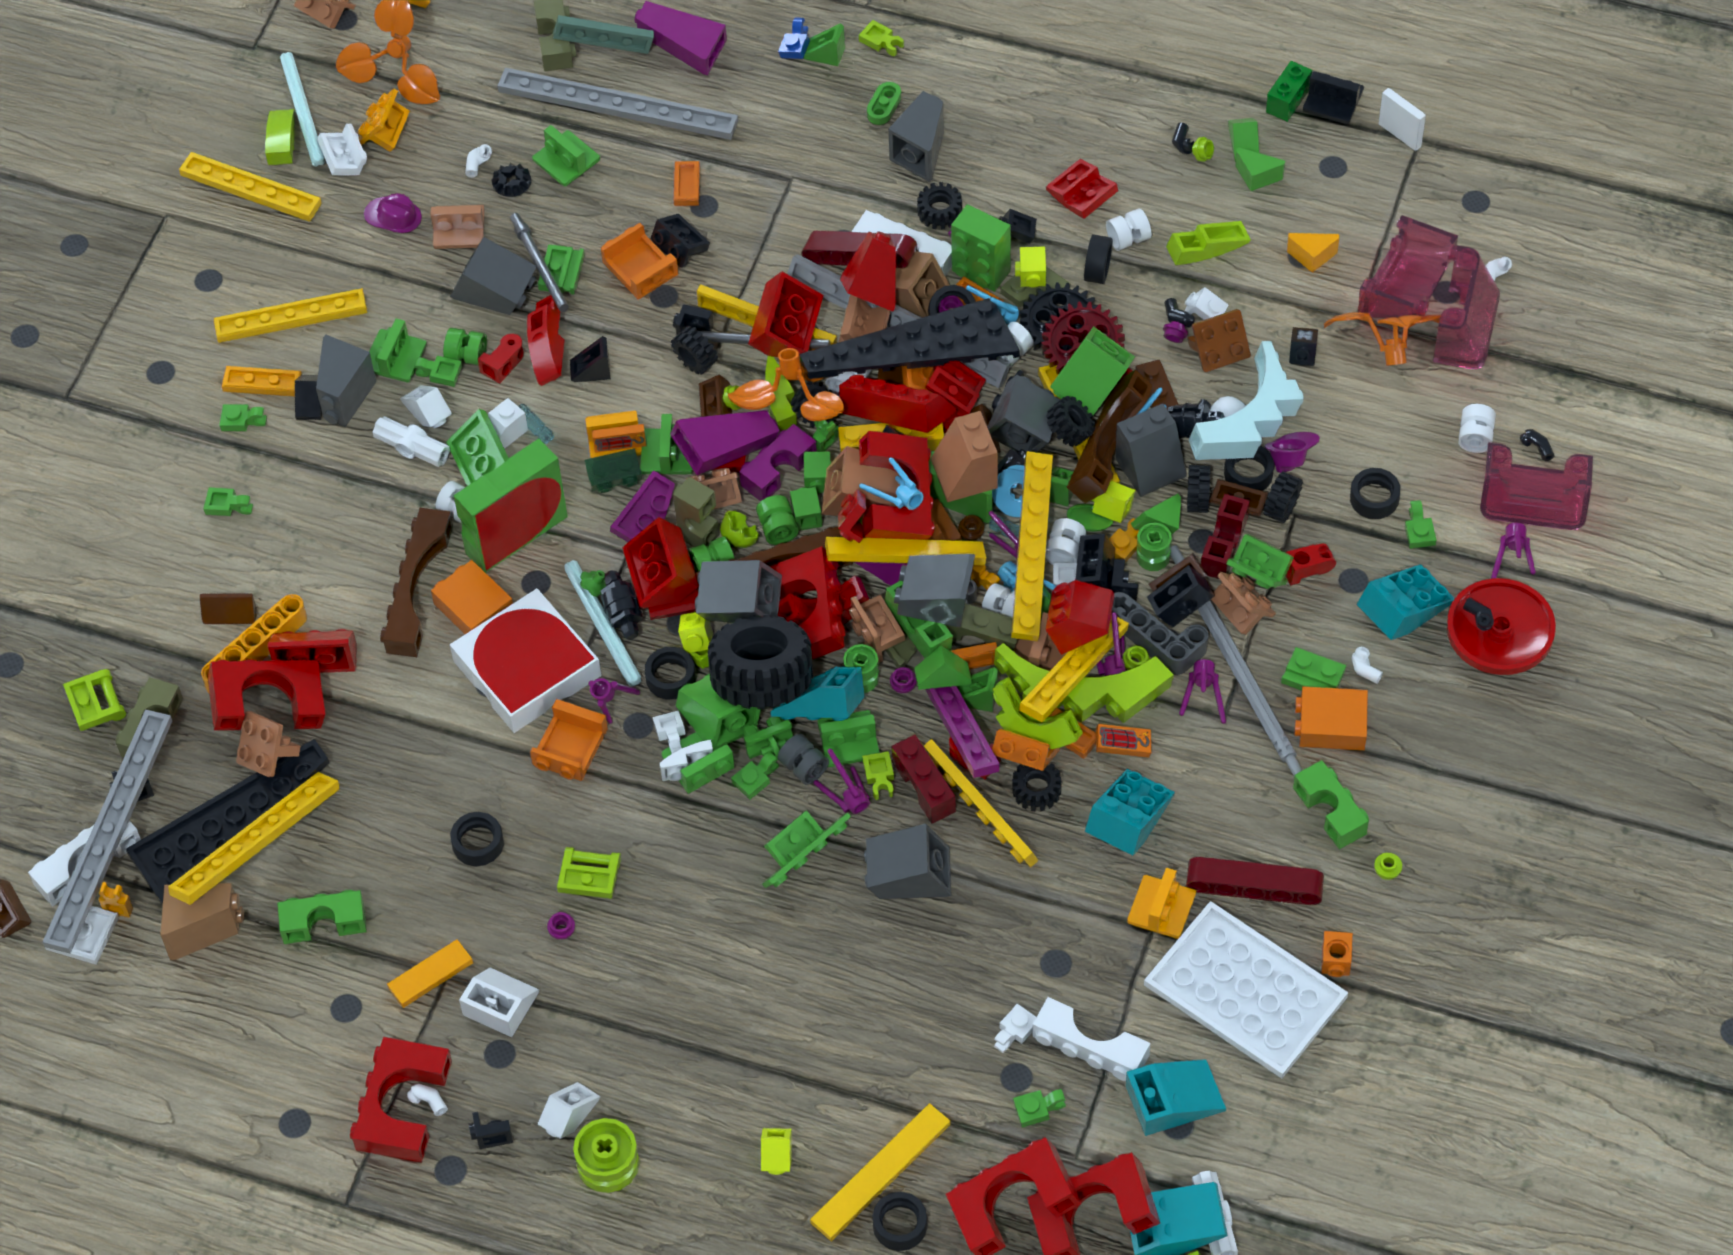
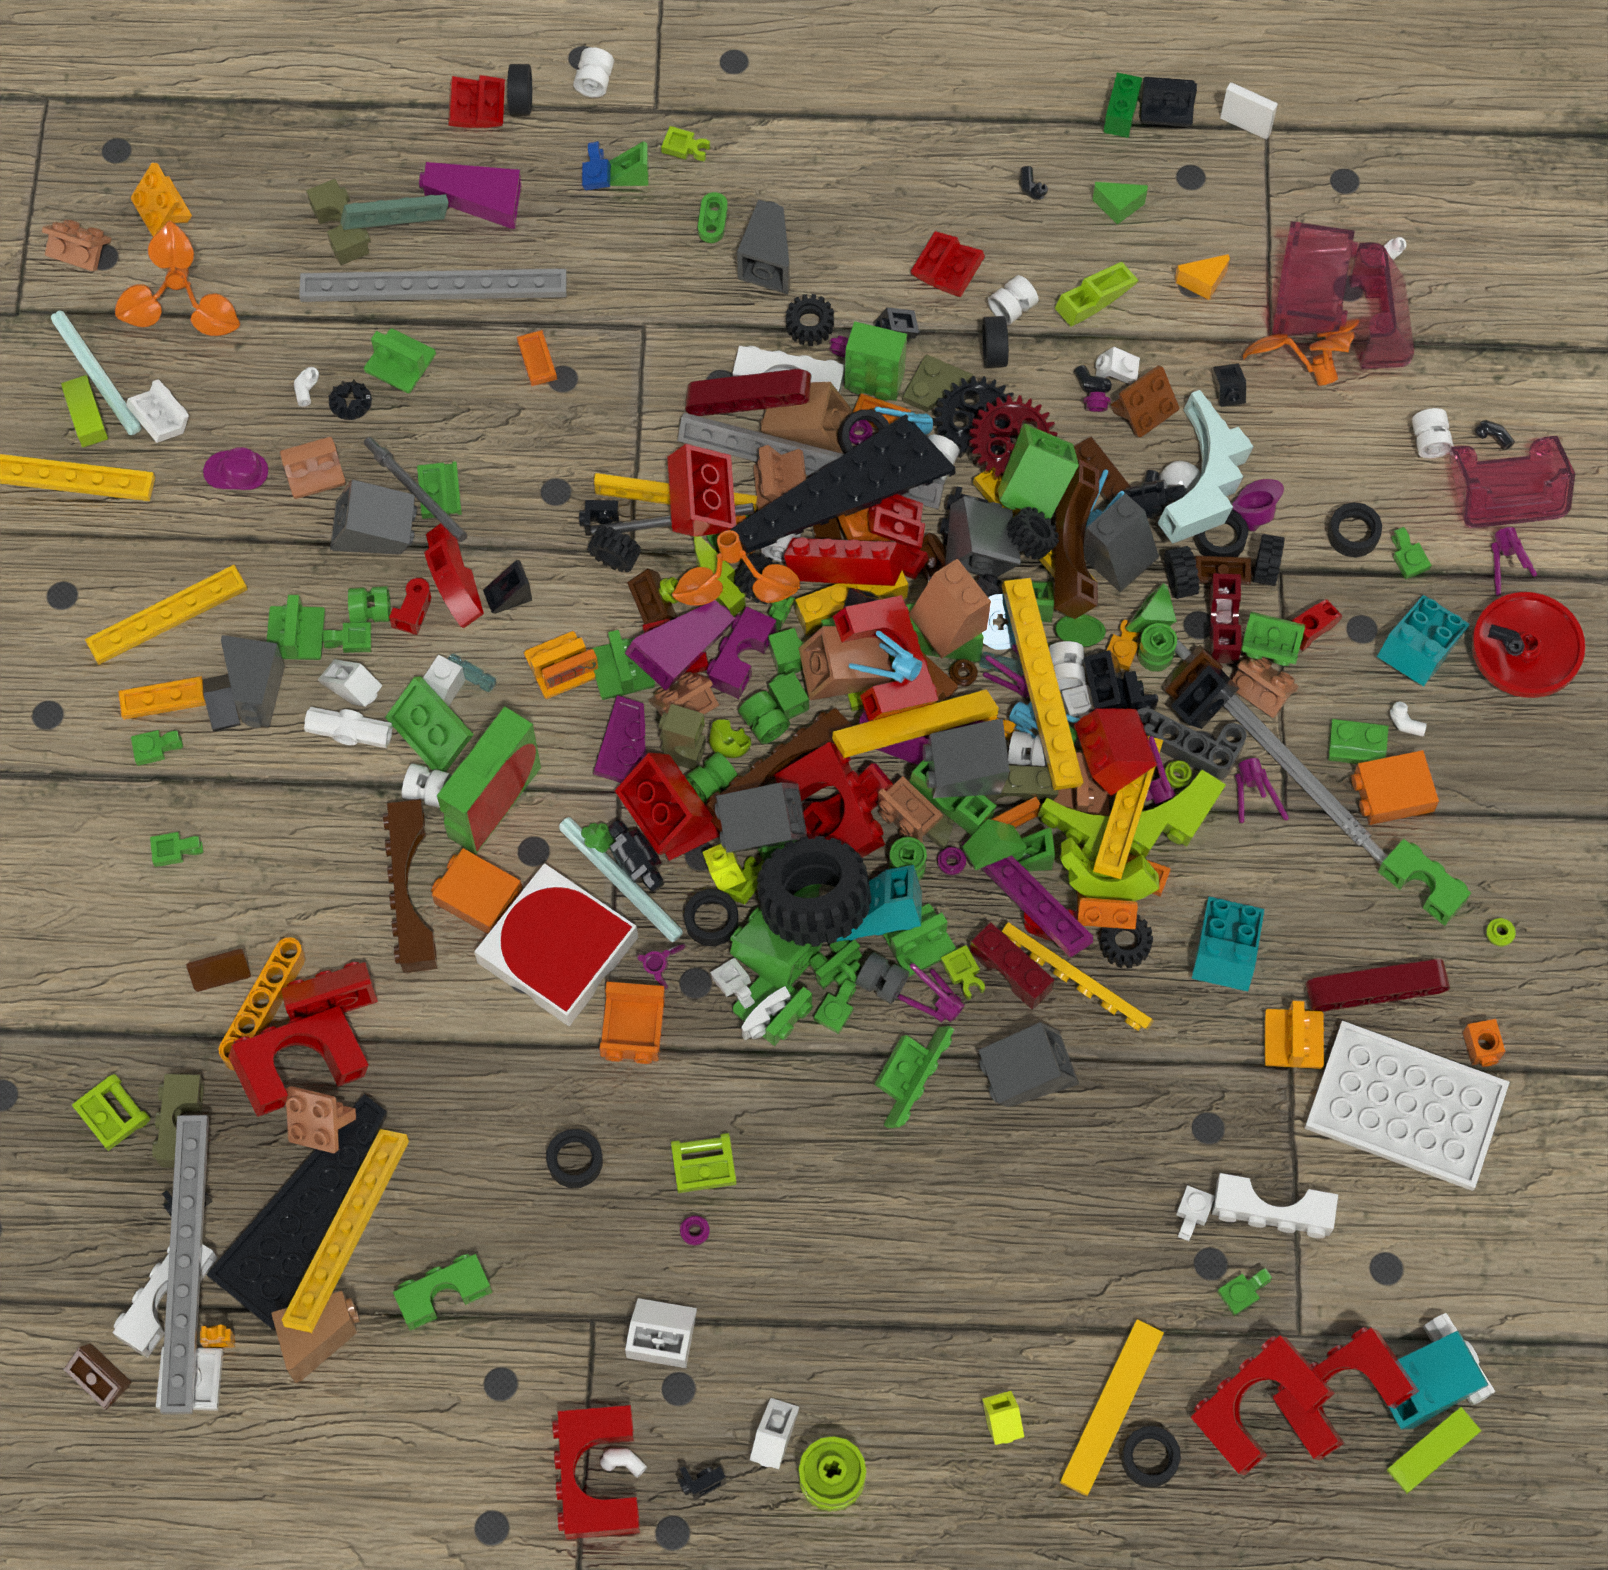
camera: 20 degrees left, 10 degrees up
(384, 121) = (191, 367): light orange bracket -> none
(430, 973) = (576, 1321): light orange tile -> none
(613, 470) = (573, 704): clear green bracket -> none
(638, 261) = (517, 461): orange panel -> none
(679, 238) = (551, 424): black bracket -> none
(852, 509) = (854, 701): red bracket -> none
(873, 271) = (778, 420): red slope -> none
(1031, 267) = (932, 368): neon yellow brick -> none
(1115, 502) = (1105, 612): neon yellow brick -> none
(1123, 740) = (1196, 867): tile -> none
(1173, 1094) = (1376, 1241): teal slope -> none
(1203, 149) = (1057, 190): lime plate -> none
(1244, 134) = (1092, 165): bright green slope -> none

